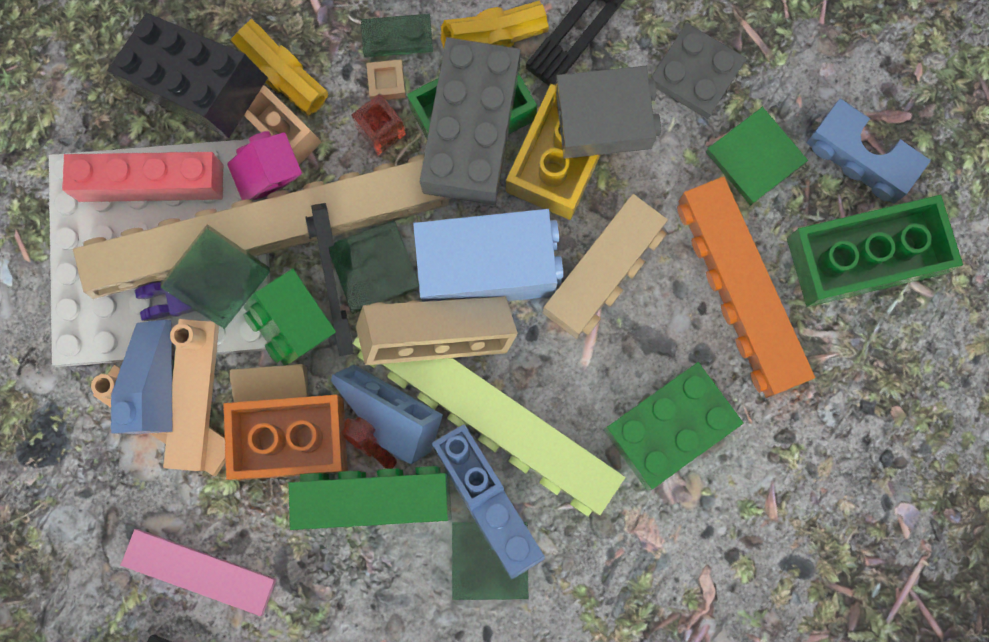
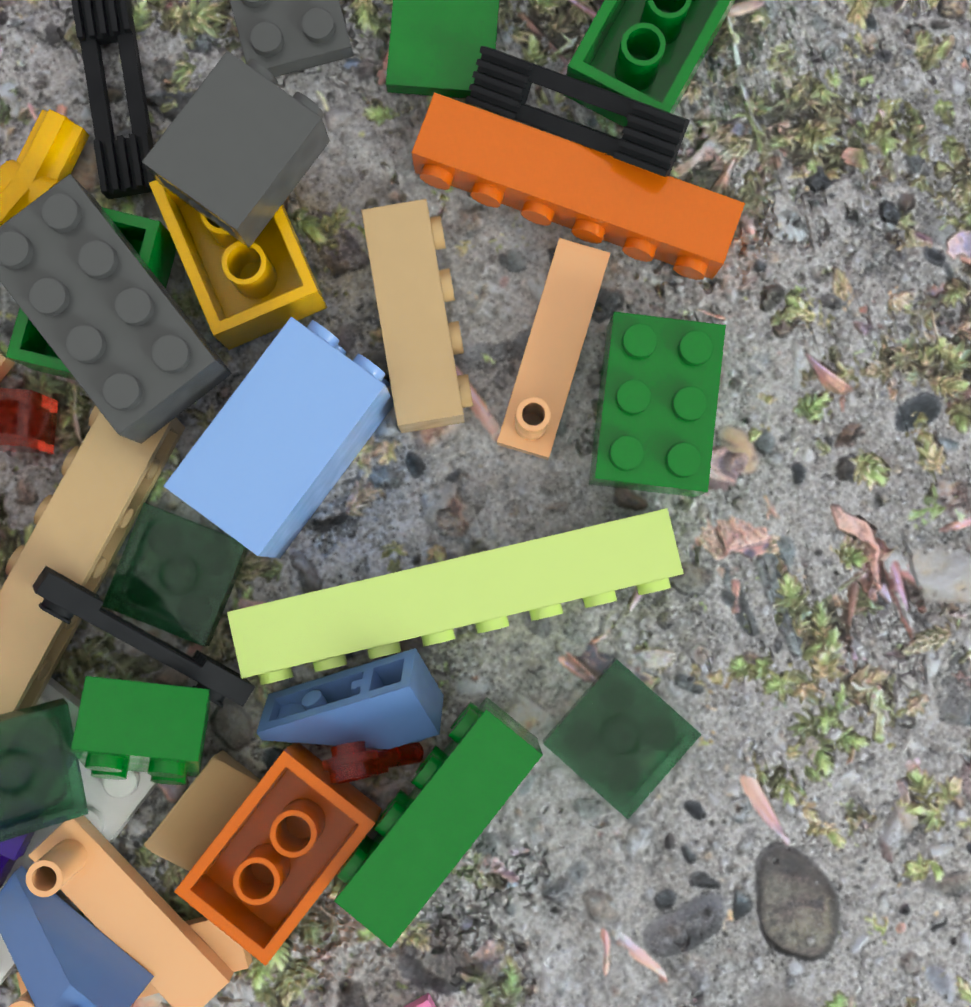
camera: 50 degrees left, 5 degrees up
(435, 329) = (310, 573): tan brick -> none
(488, 501) = (558, 685): medium blue slope -> none
(654, 349) = (553, 349): none -> light nougat piece
(800, 300) = (648, 140): none -> black container

